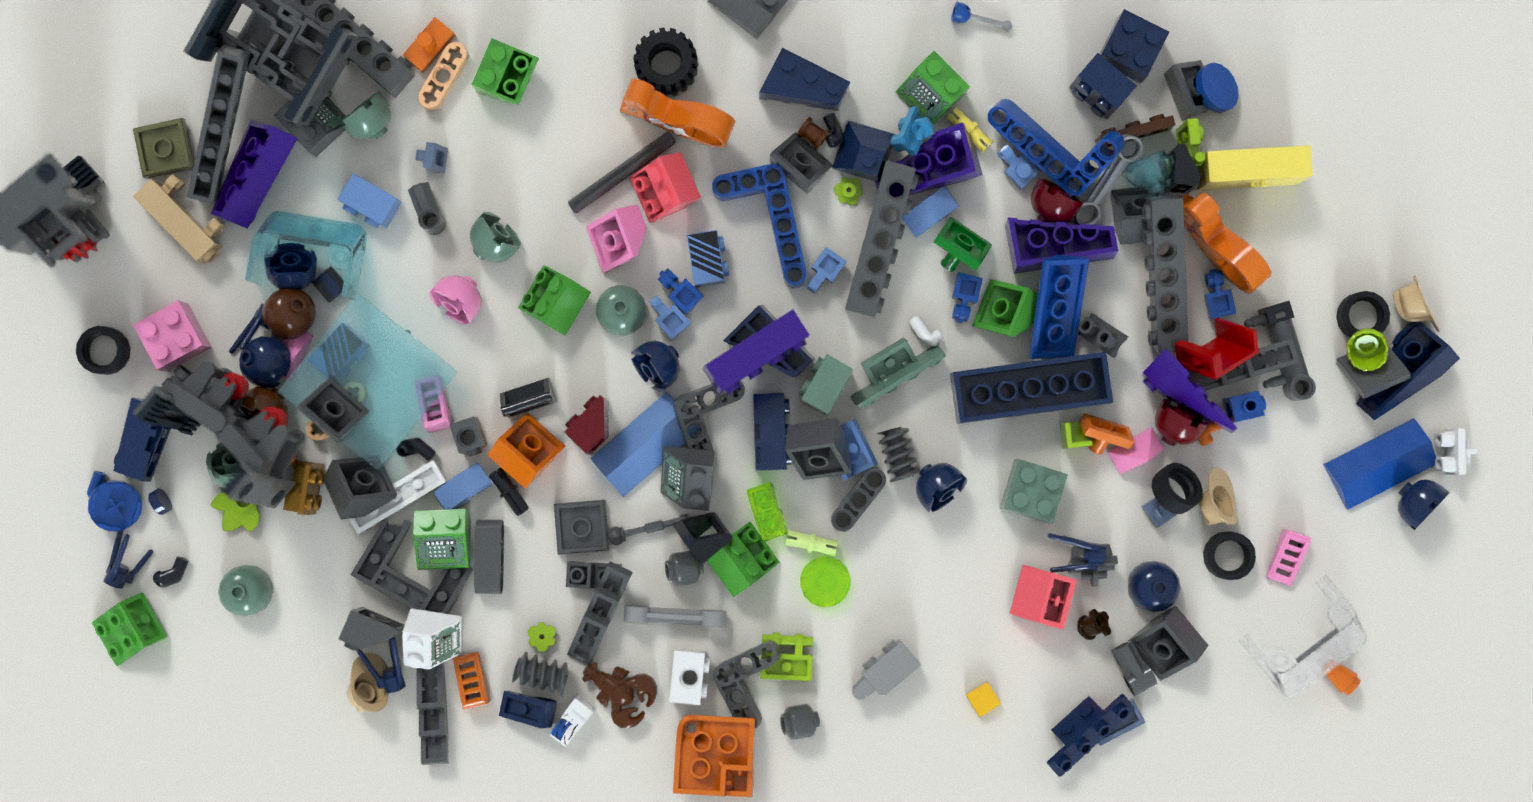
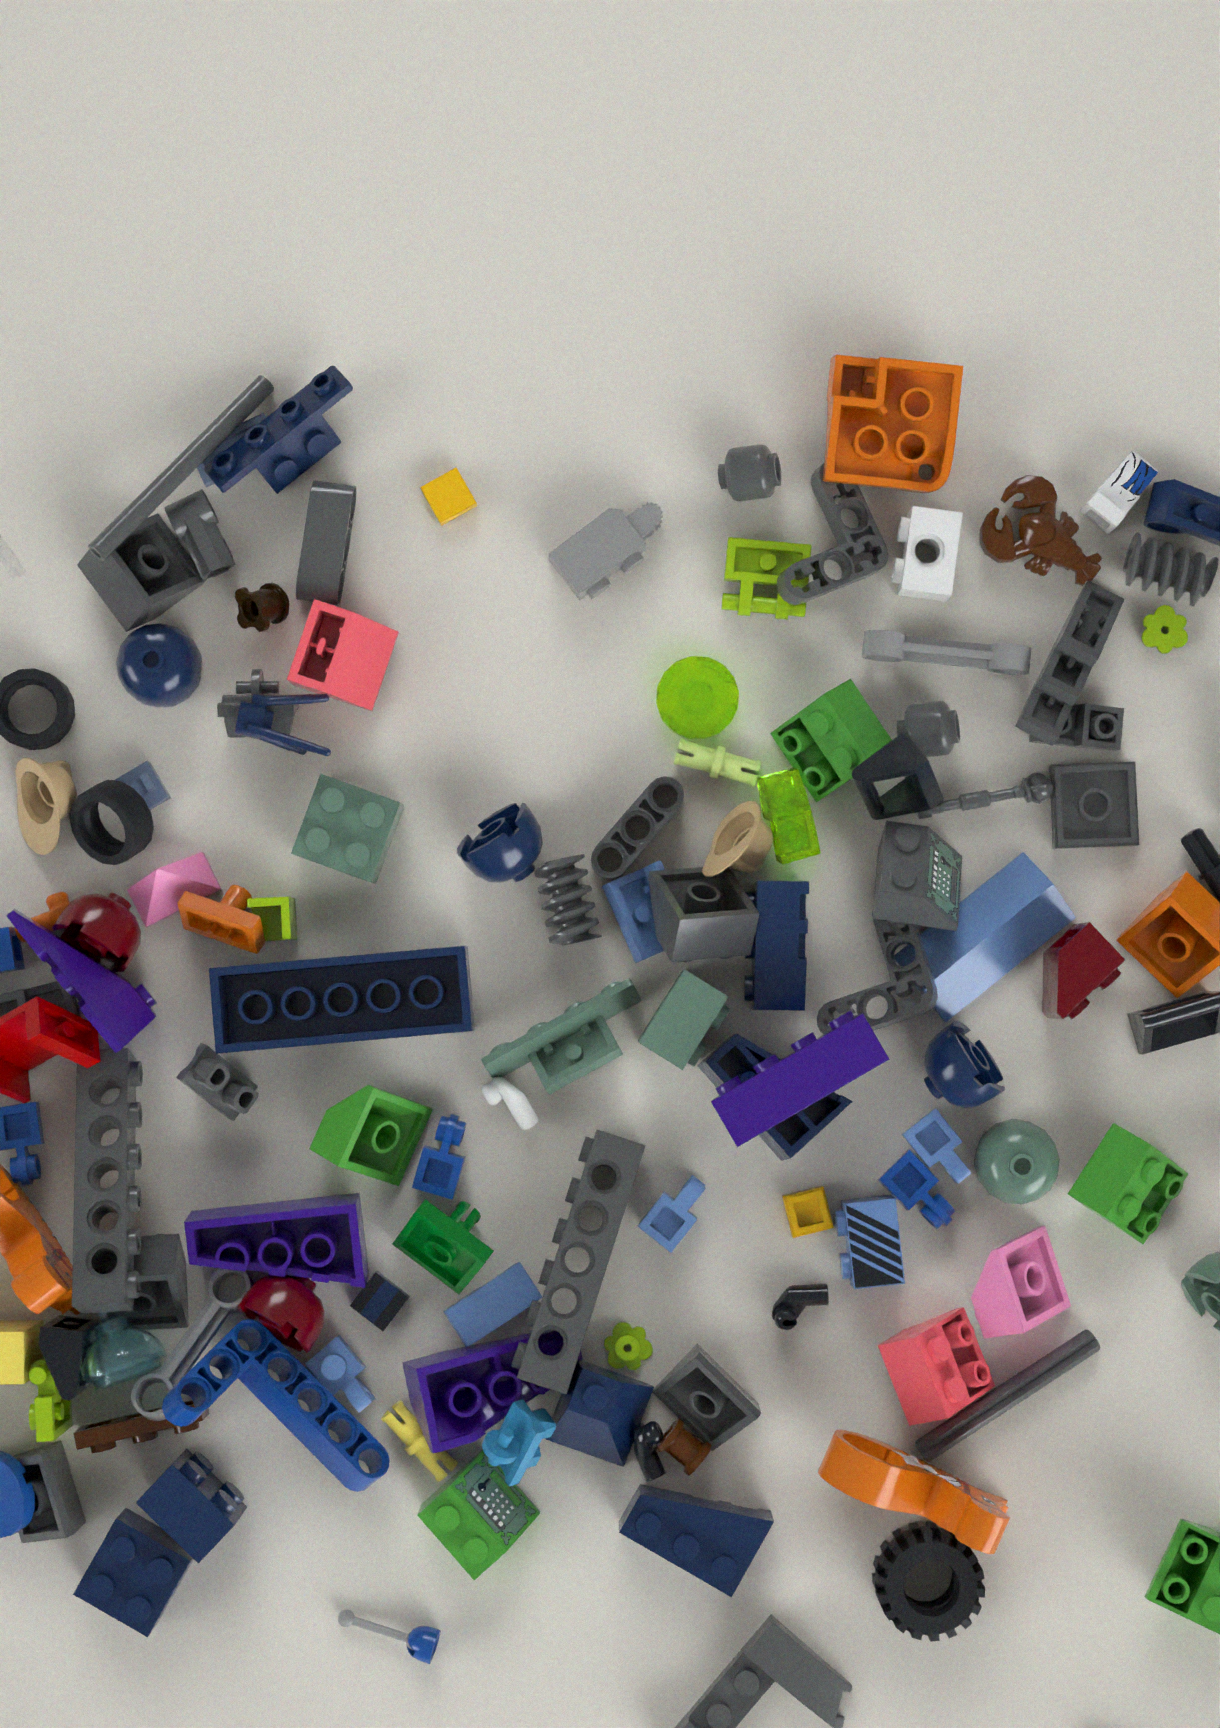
camera: 175 degrees left, 0 degrees up
(745, 275) = (807, 1211): none -> yellow tile
(750, 222) = (794, 1301): none -> black arm
(776, 214) = (752, 1311): blue beam -> none
(796, 494) = (739, 841): none -> tan piece
(997, 210) = (379, 1301): none -> tile
(1057, 666) = (326, 542): none -> dark grey beam
(1058, 306) = (289, 1133): blue slope -> none
(1149, 707) = (180, 468): none -> dark grey piece

